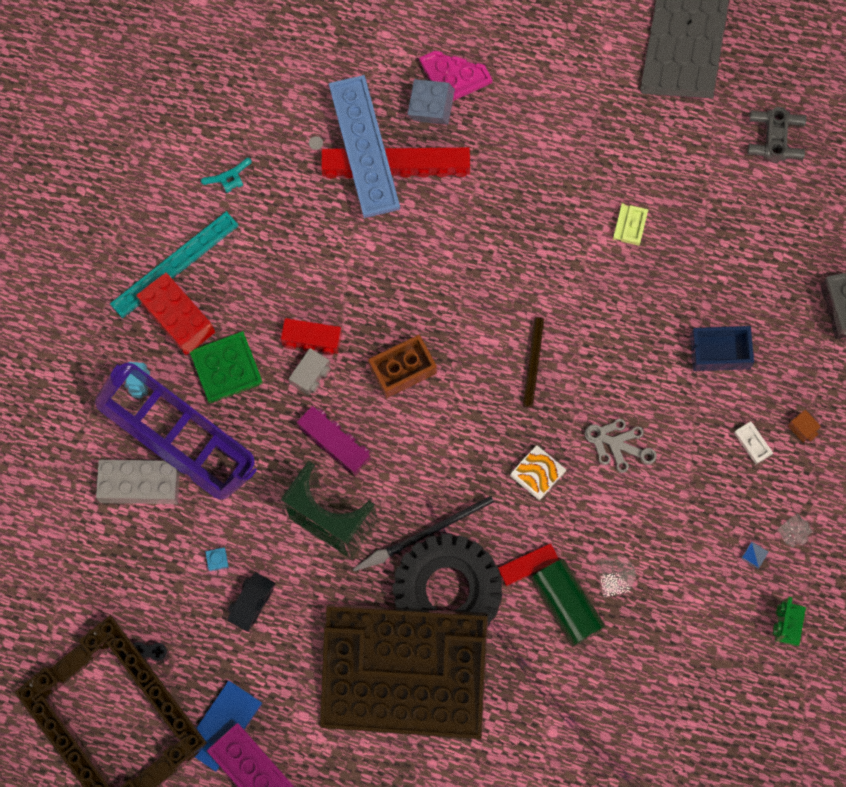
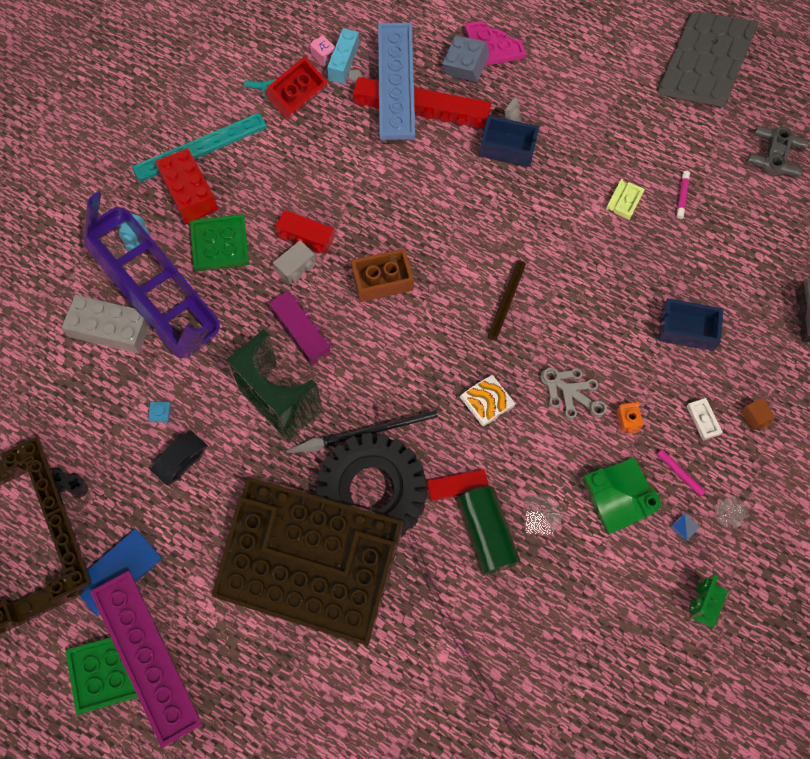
camera: 10 degrees right, 5 degrees down
(260, 177) = (295, 88): none -> red brick
(275, 123) = (322, 50): none -> bright pink brick
(299, 125) = (343, 56): none -> medium azure brick
(495, 160) = (512, 111): none -> light grey slope
(497, 187) = (508, 141): none -> dark blue piece
(678, 465) = (627, 424): none -> orange brick
(687, 538) = (621, 495): none -> green slope
(688, 205) = (683, 195): none -> dark pink bar
(741, 502) = (681, 473): none -> dark pink bar

